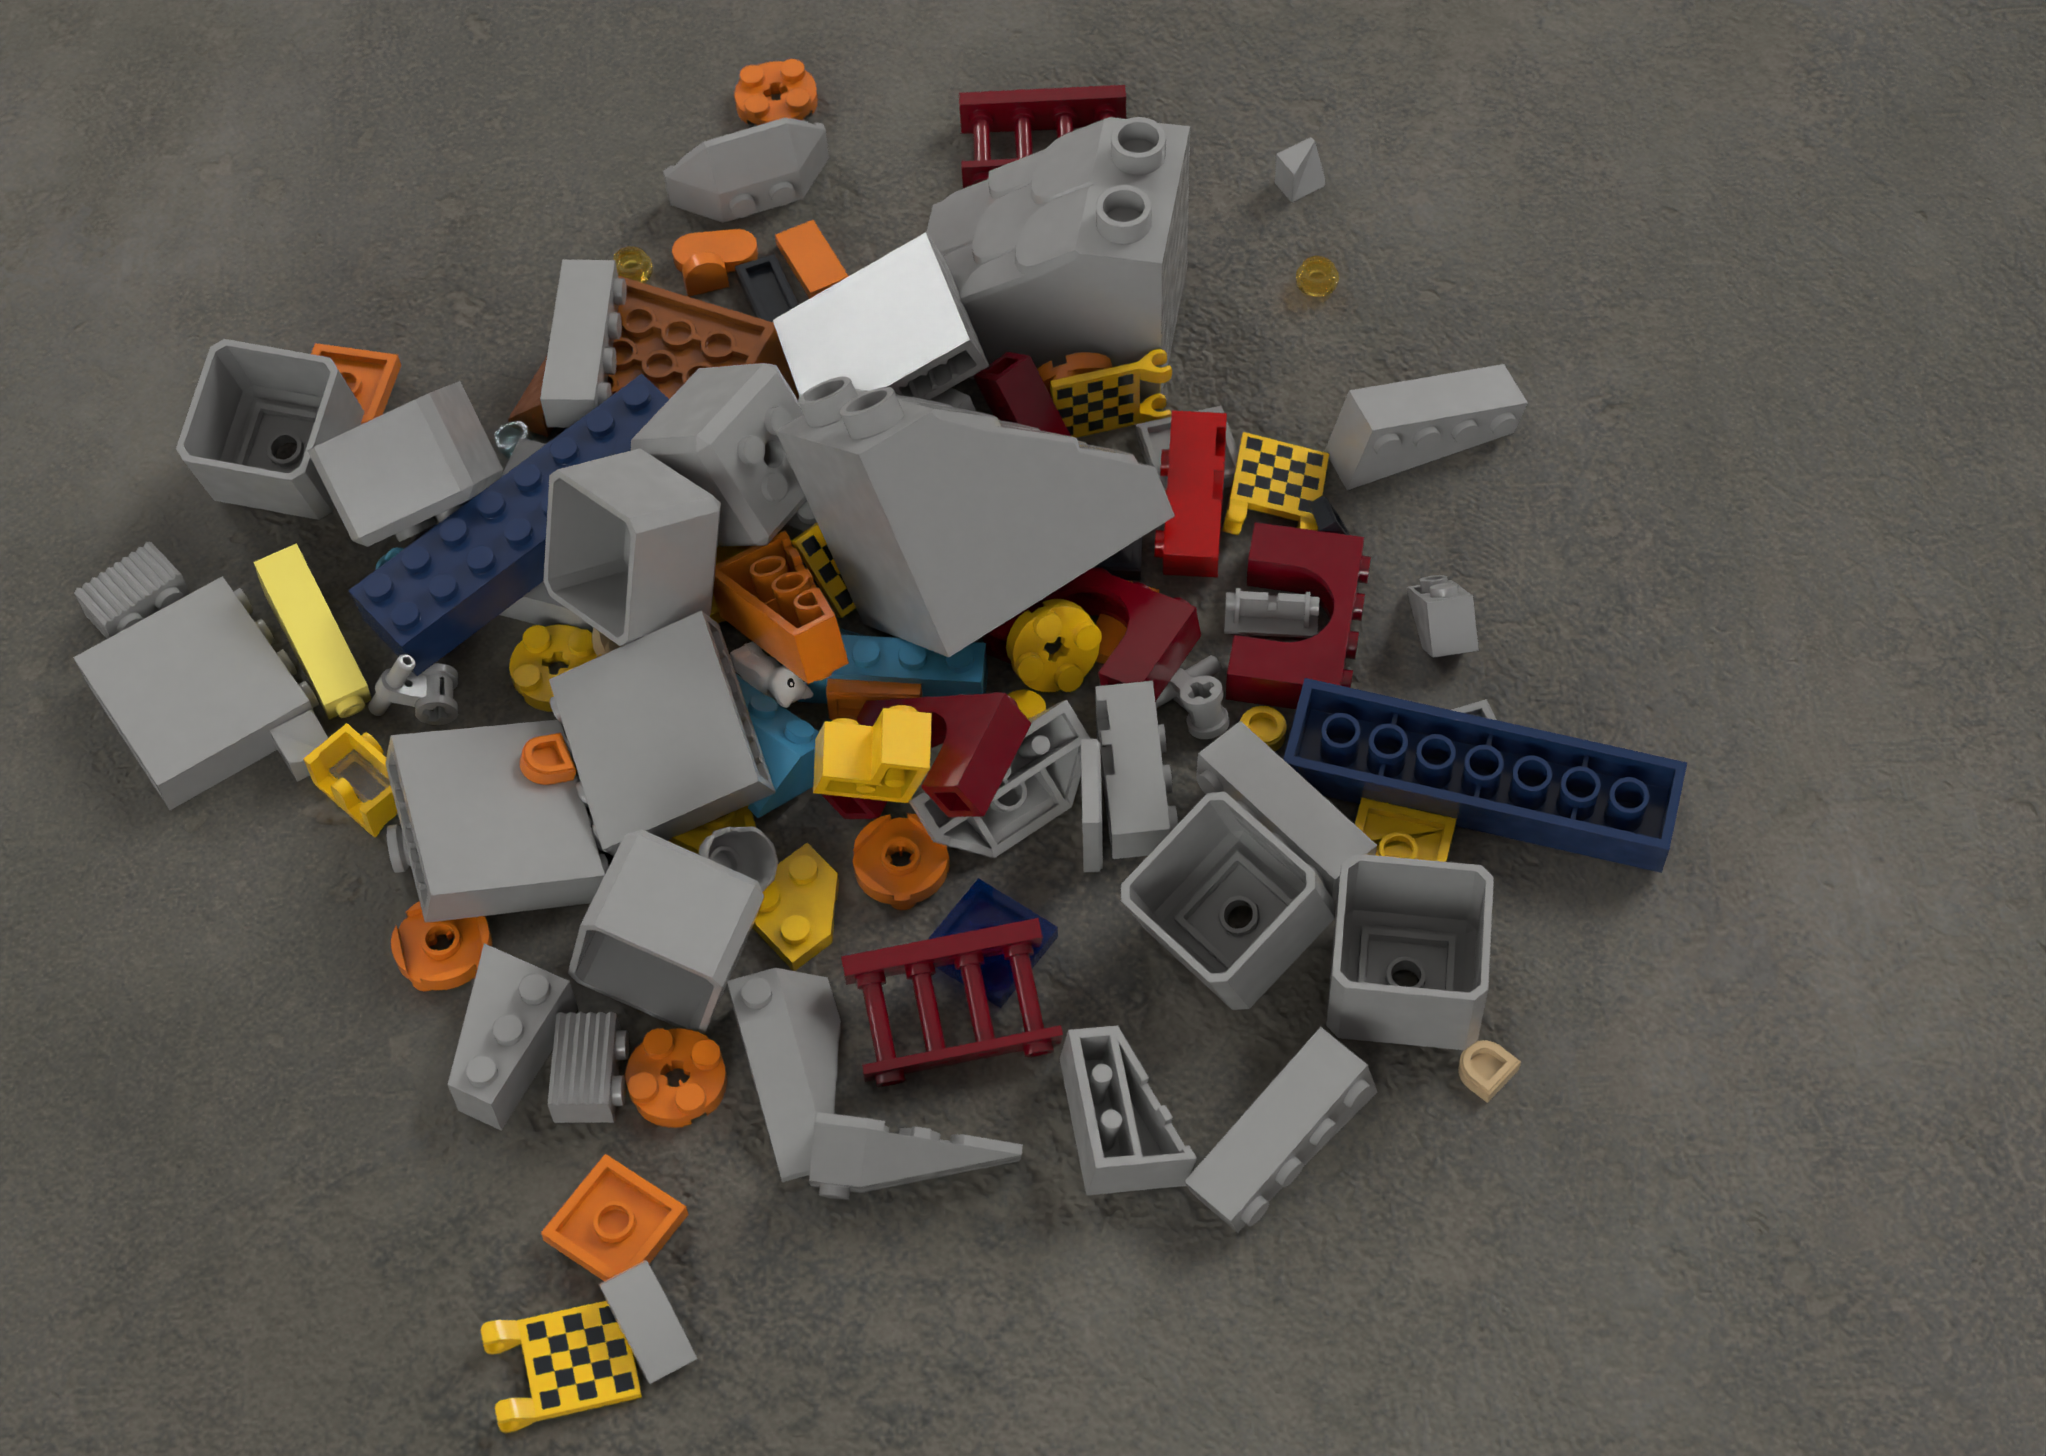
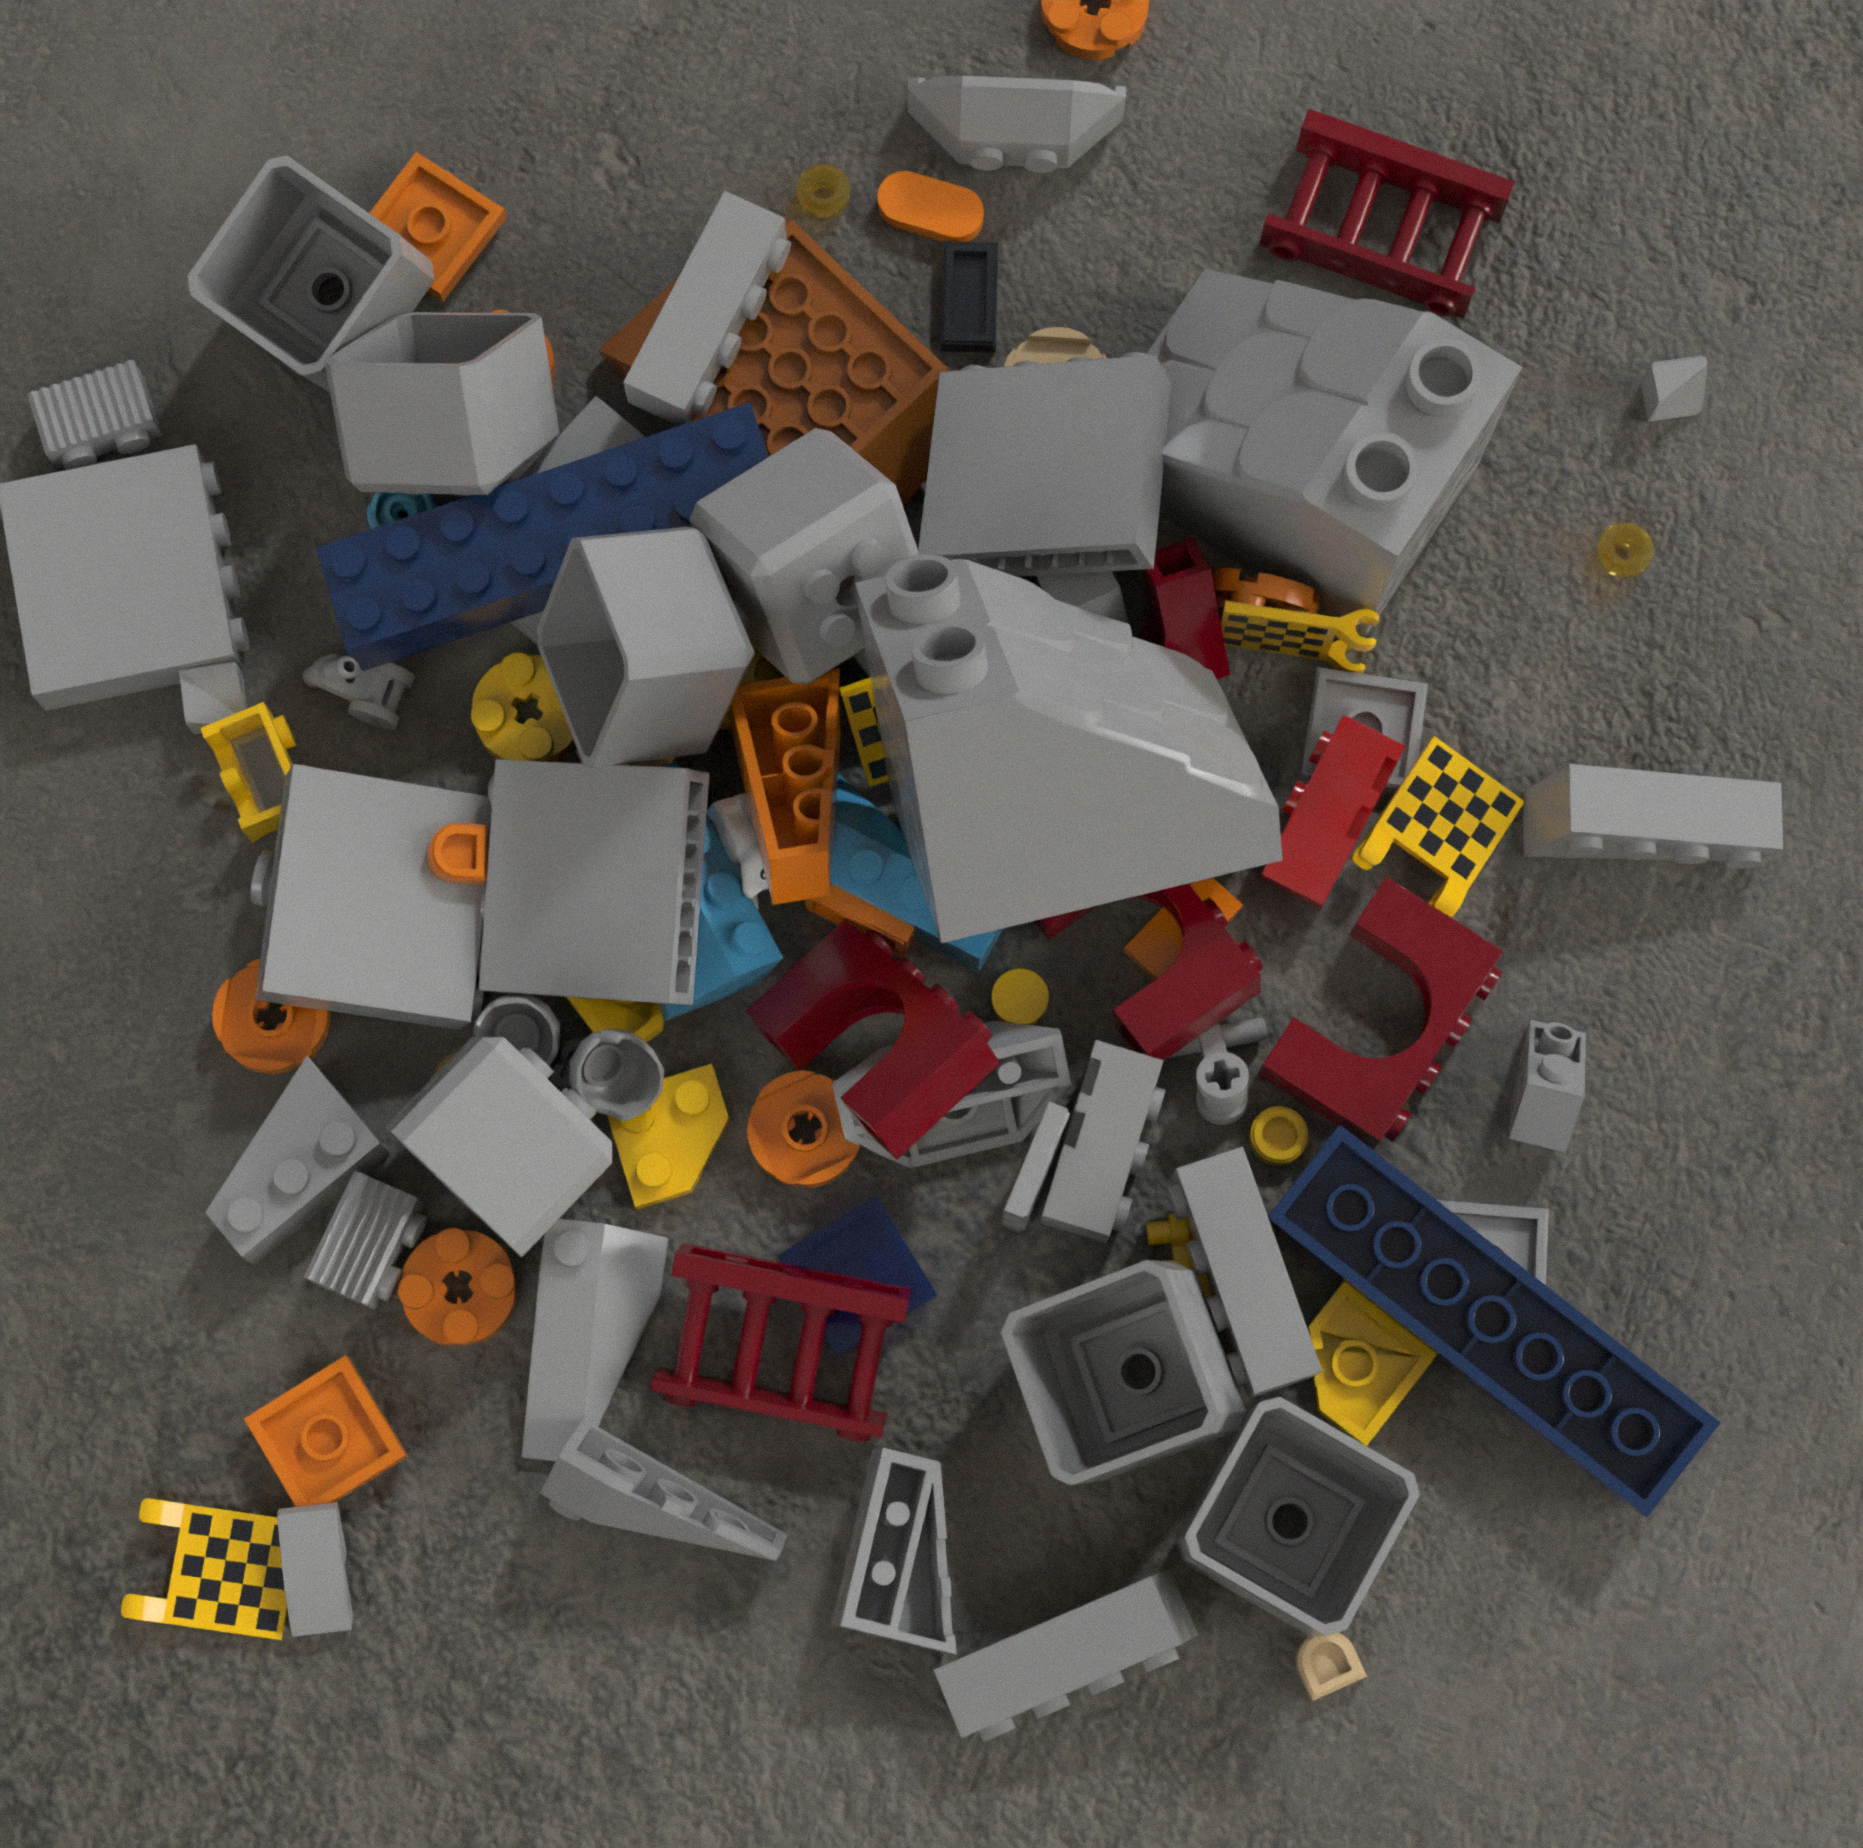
camera: 20 degrees right, 20 degrees up
(312, 632) = (271, 562): light yellow slope -> none
(509, 435) = (589, 380): clear light blue hinge -> none
(704, 273) = (903, 238): orange tile -> none
(810, 258) = (1039, 269): orange tile -> none
(874, 760) = (813, 1029): yellow brick -> none
(1068, 665) = (1085, 946): yellow plate -> none
(1271, 615) = (1356, 992): light grey hinge -> none
(1327, 517) = (1477, 904): black tile -> none

